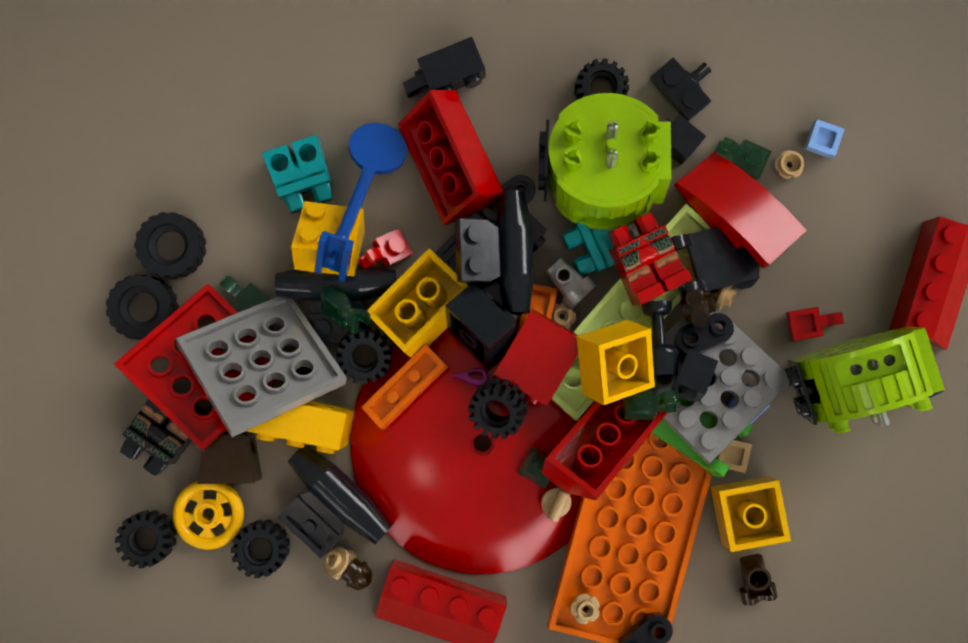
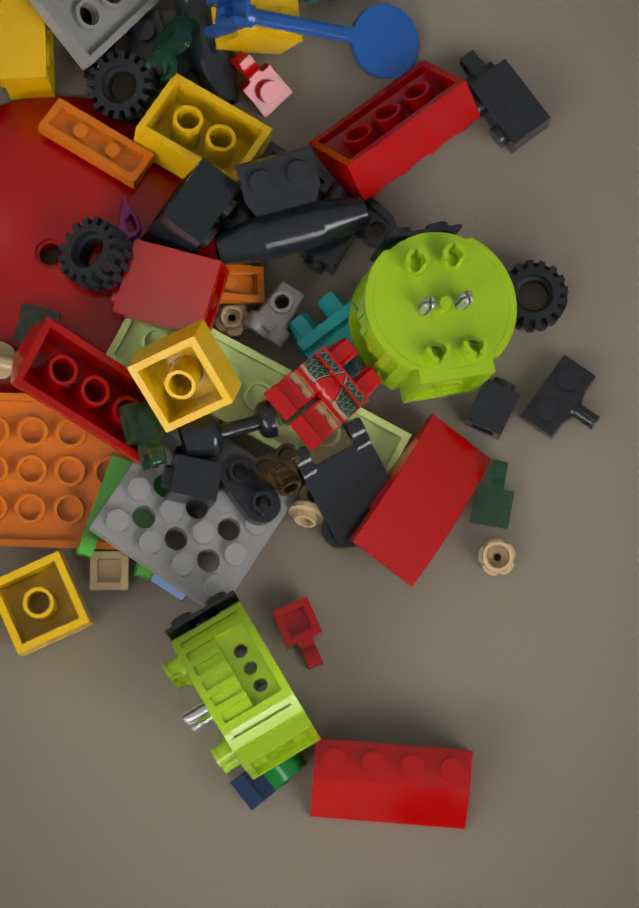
camera: 80 degrees right, 5 degrees down
(824, 139) = (540, 592): light blue plate -> none

